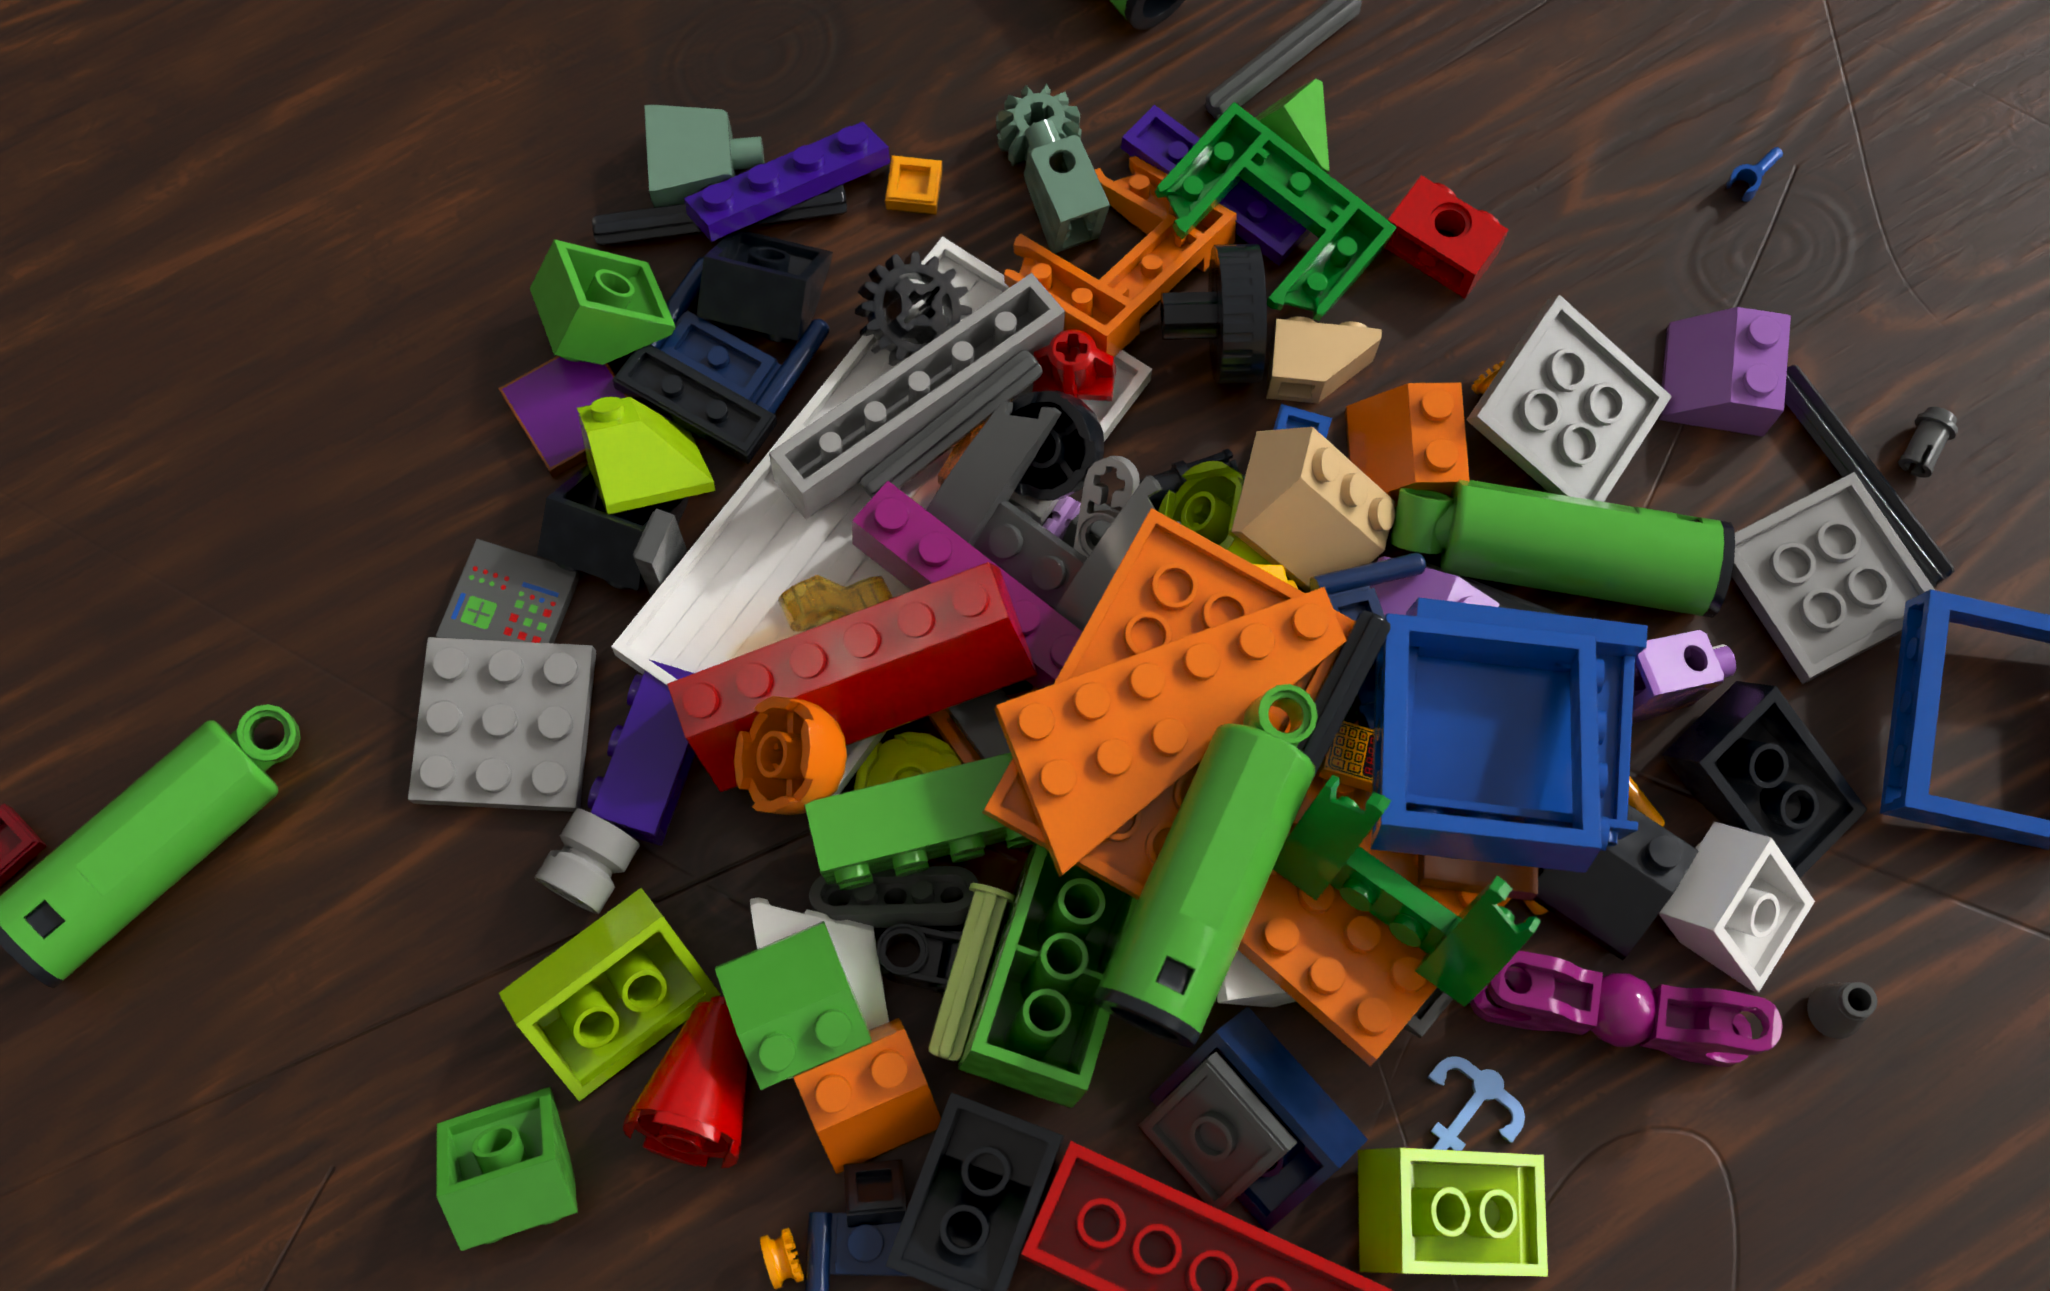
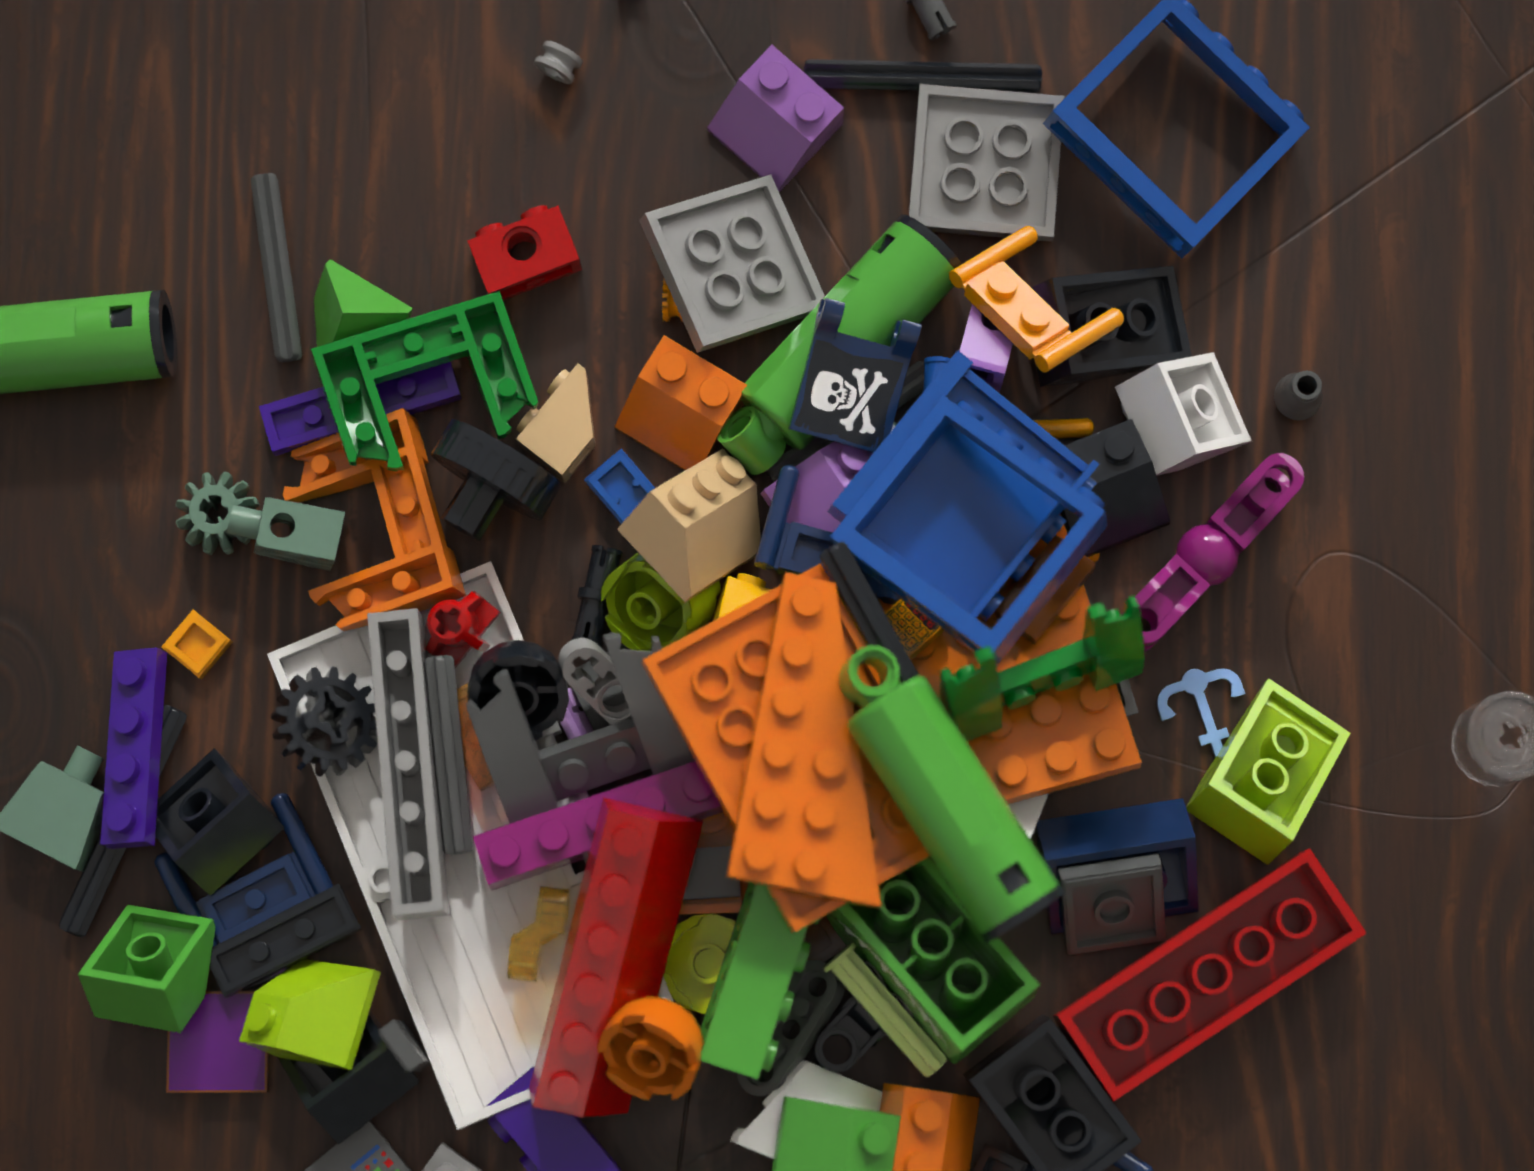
camera: 55 degrees left, 10 degrees up
(1544, 558) = (851, 382): none -> flag
(1631, 163) = (558, 62): none -> light grey bush
(1722, 680) = (1019, 310): none -> light orange plate

